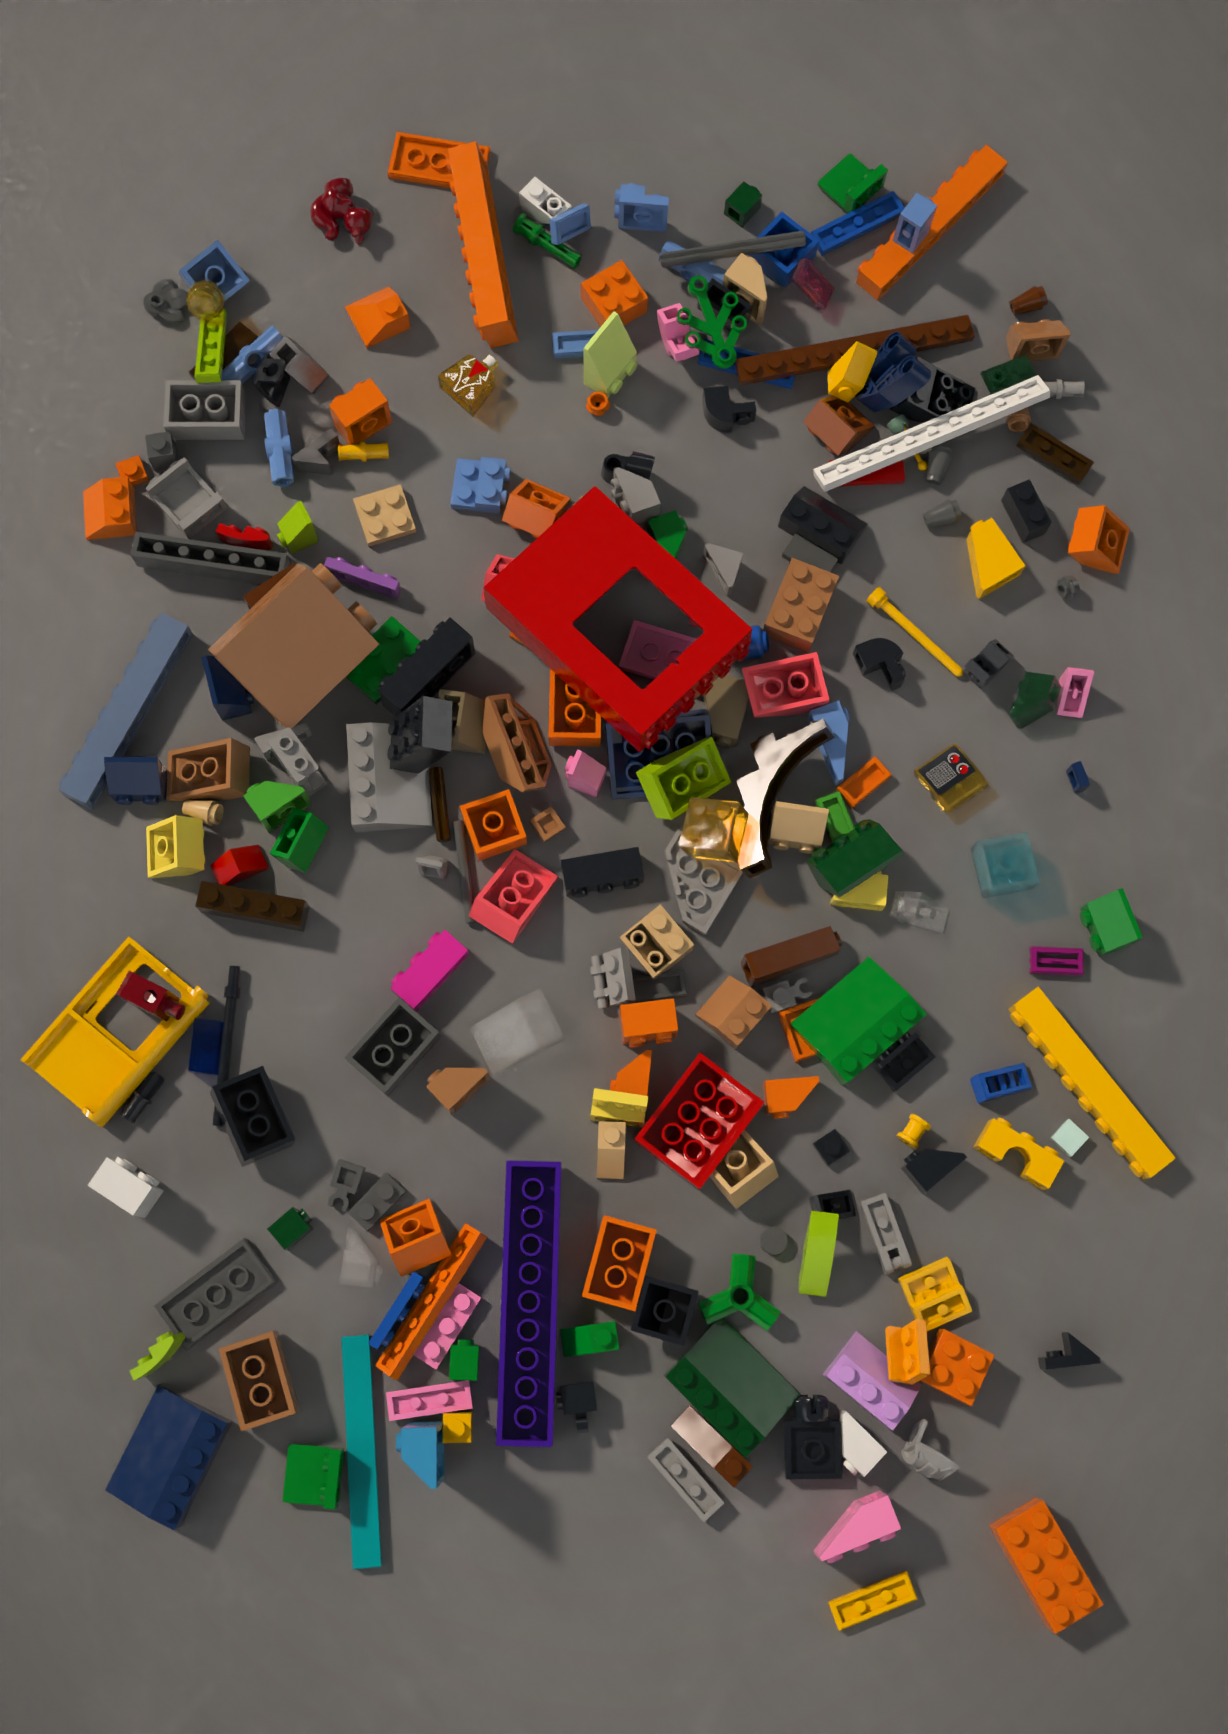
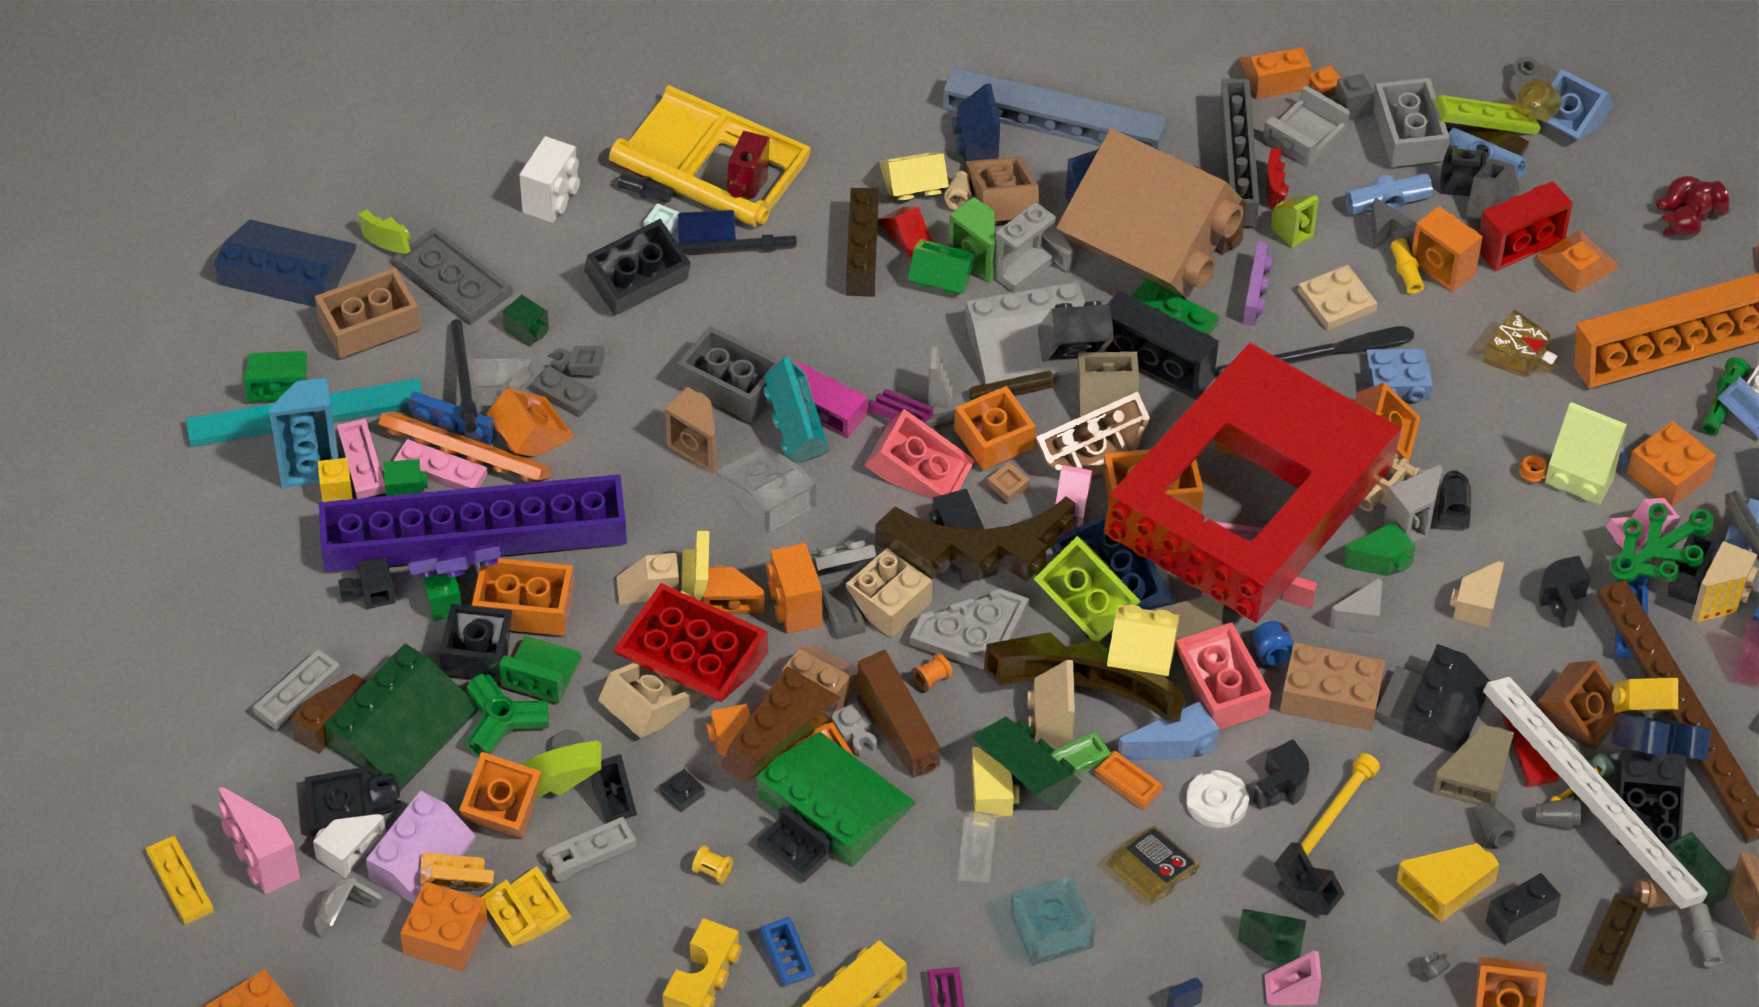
camera: 85 degrees right, 25 degrees down
(184, 1086) = (666, 214): none -> light aqua tile
(344, 343) = (1524, 225): none -> red brick
(406, 1293) = (467, 407): none -> black bar
(437, 500) = (1367, 341): none -> black piece
(442, 900) = (893, 403): none -> magenta tile
(458, 994) = (795, 411): none -> teal slope
(590, 1320) = (456, 559): none -> dark purple plate
(642, 826) = (975, 551): none -> dark brown arch
(691, 1255) = (539, 669): none -> green bracket
(713, 829) = (1028, 613): clear yellow brick -> none
(722, 473) = (1477, 595): none -> tan slope
(741, 921) = (932, 672): none -> orange bush
(757, 741) = (1143, 640): none -> light yellow slope
(799, 1057) = (780, 721): none -> reddish brown wedge
(840, 1306) = (501, 795): none -> orange slope
(889, 512) = (1476, 767): none -> dark tan slope
(890, 717) = (1217, 799): none -> white tile
(930, 1166) = (670, 883): black slope -> none

